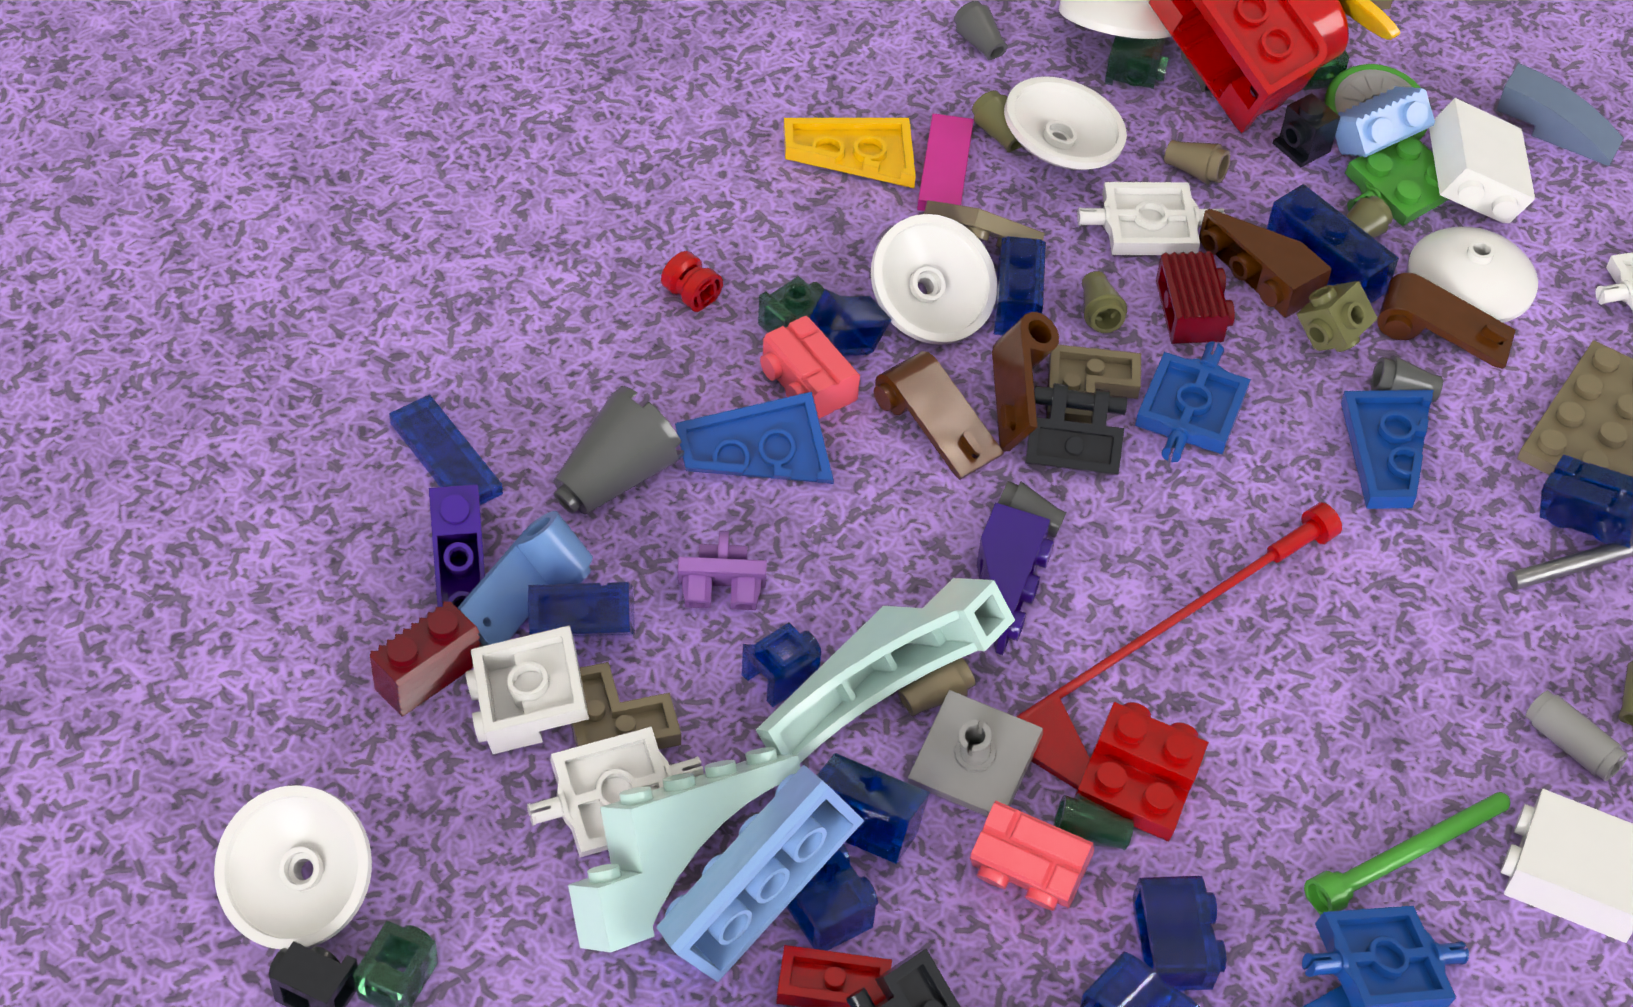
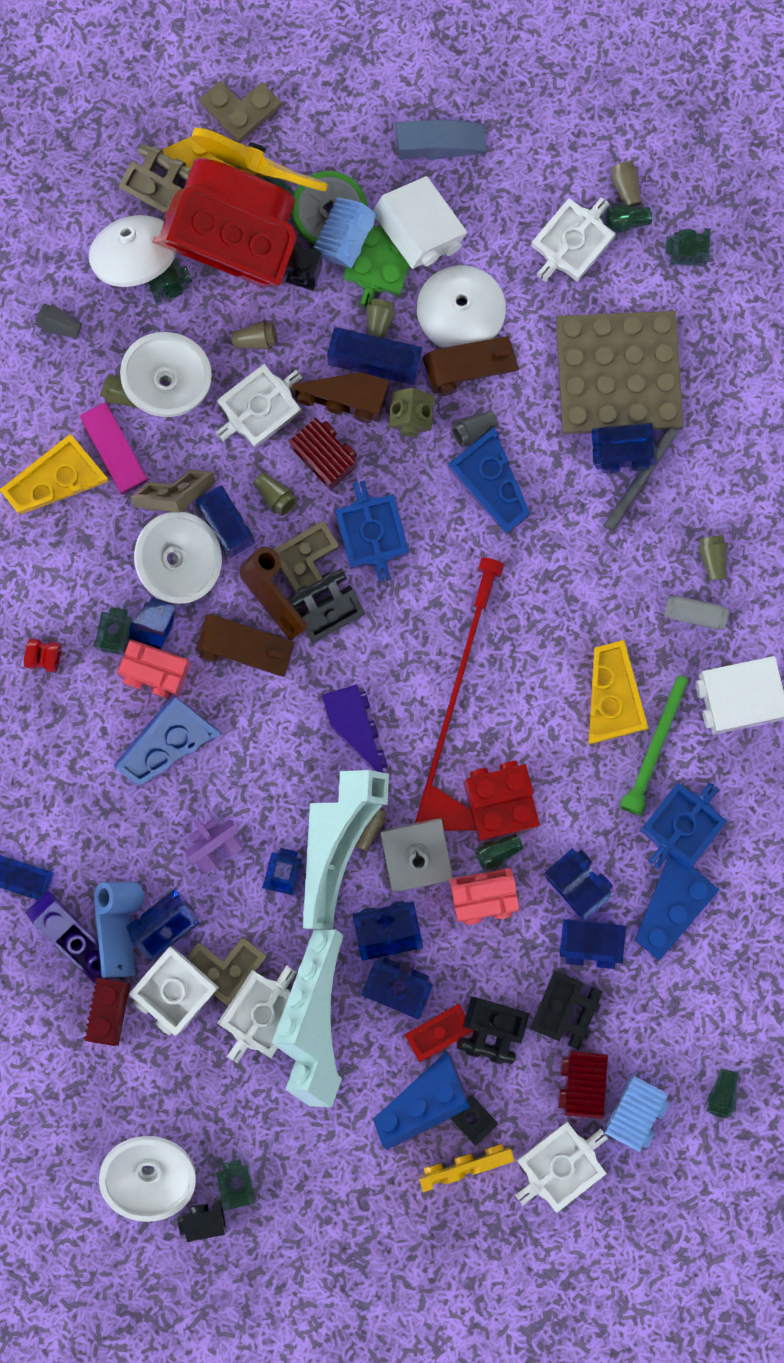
camera: 30 degrees left, 30 degrees up
(616, 453) = (100, 813): dark grey cone -> none
(758, 874) = (370, 1019): light blue slope -> none
(1027, 500) = (335, 676): dark grey cone -> none
(1390, 758) = (615, 695): none -> yellow wing

